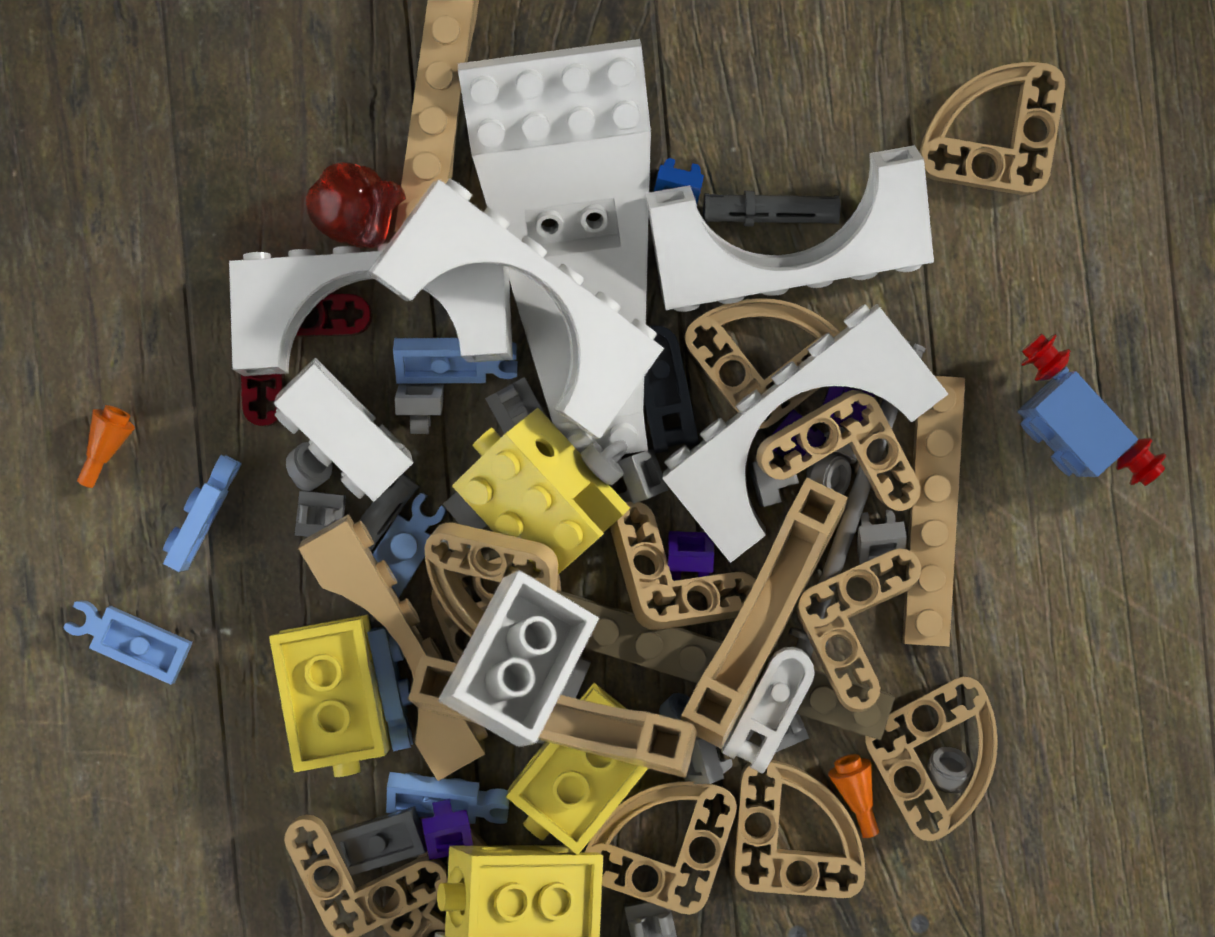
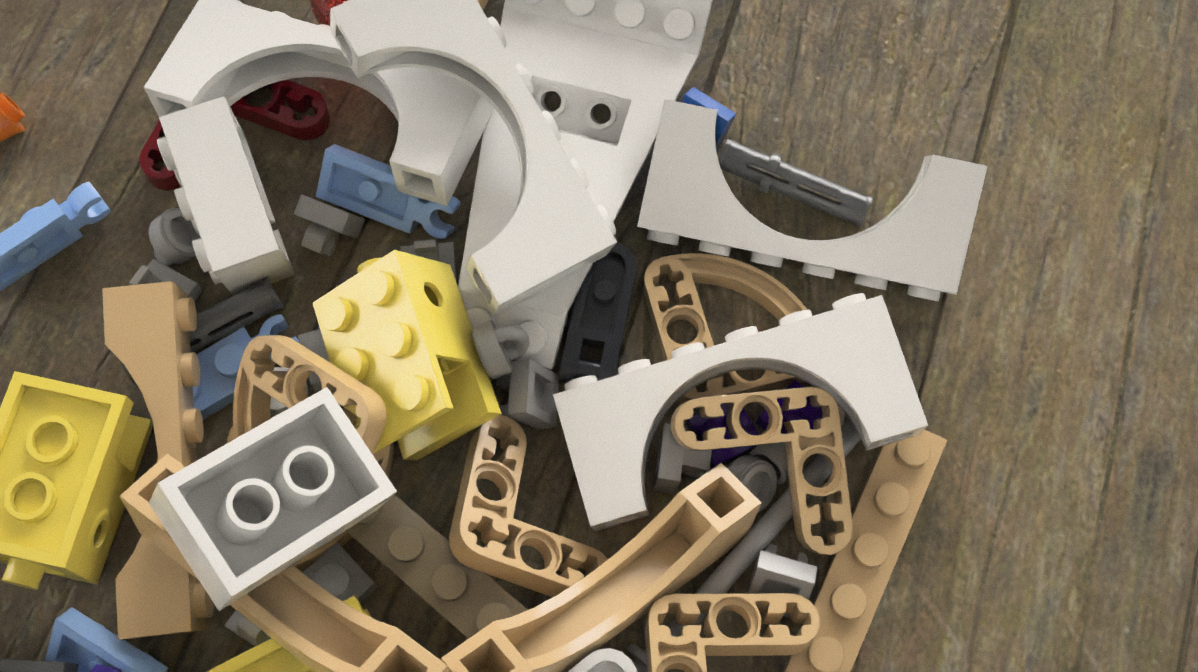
camera: 20 degrees right, 20 degrees down
(392, 688) = (118, 529): light blue plate -> none
(690, 553) = (548, 502): dark purple tile -> none
(1006, 159) = (1071, 236): tan beam -> none
(1079, 423) = (1075, 536): medium blue brick -> none

